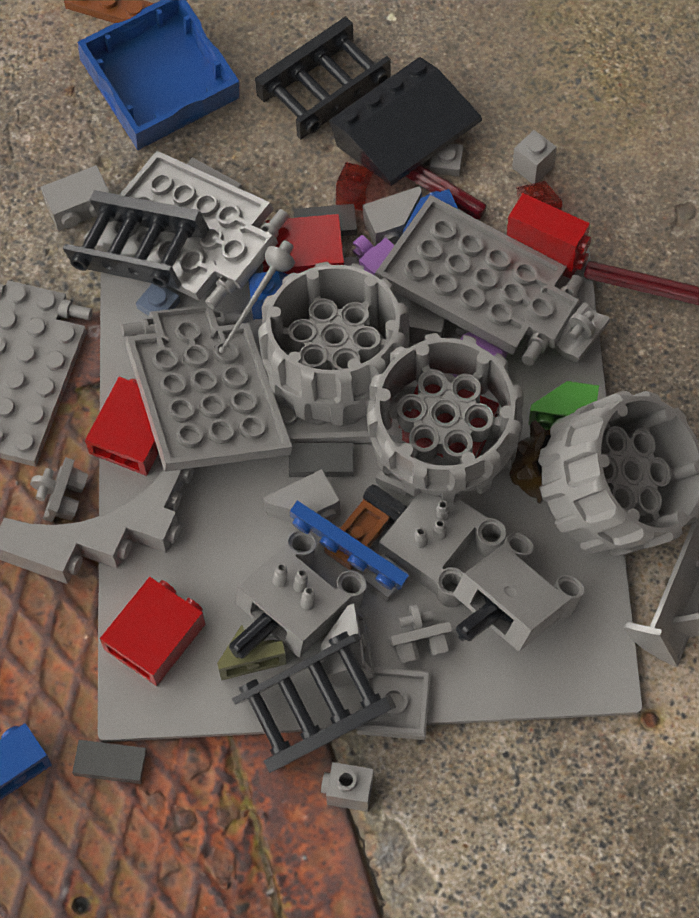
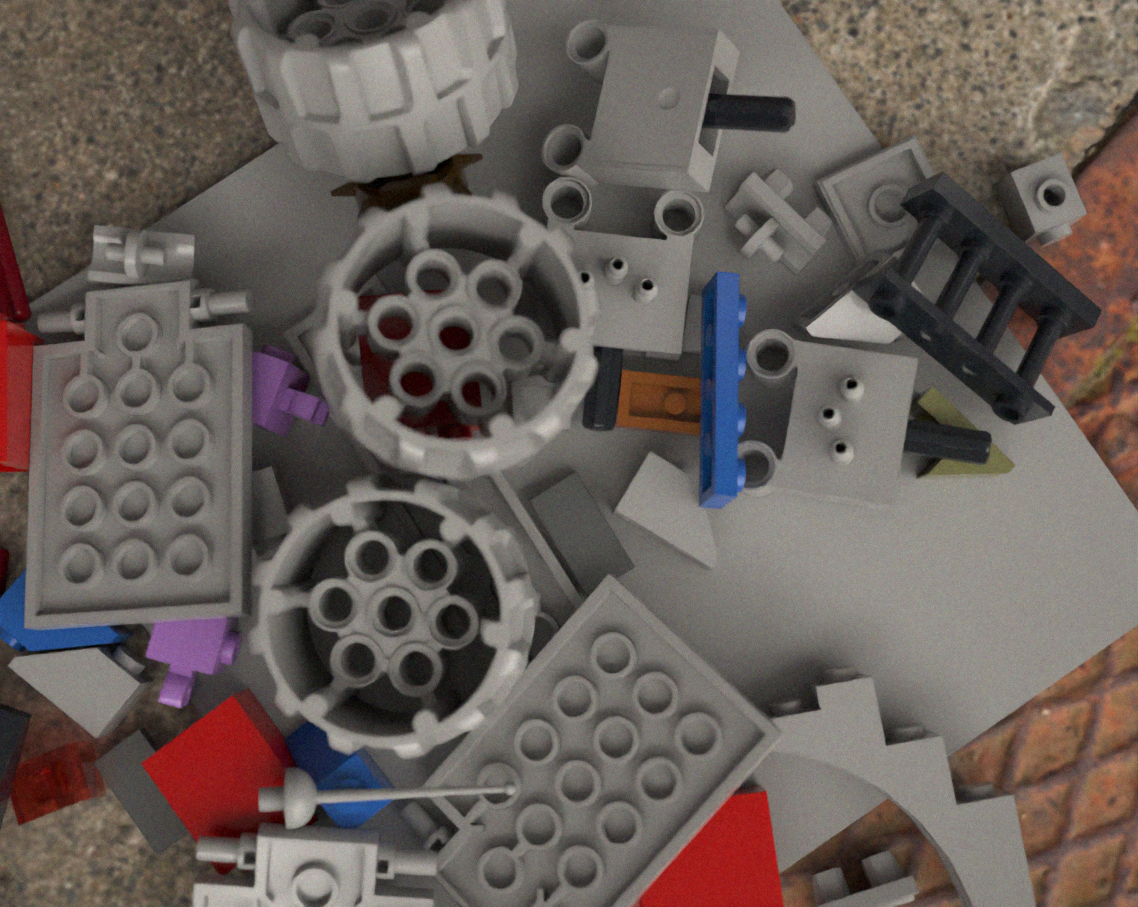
camera: 130 degrees left, 20 degrees up
(153, 630) = (1003, 605): red brick -> none
(562, 402) = (281, 209): bright green slope -> none

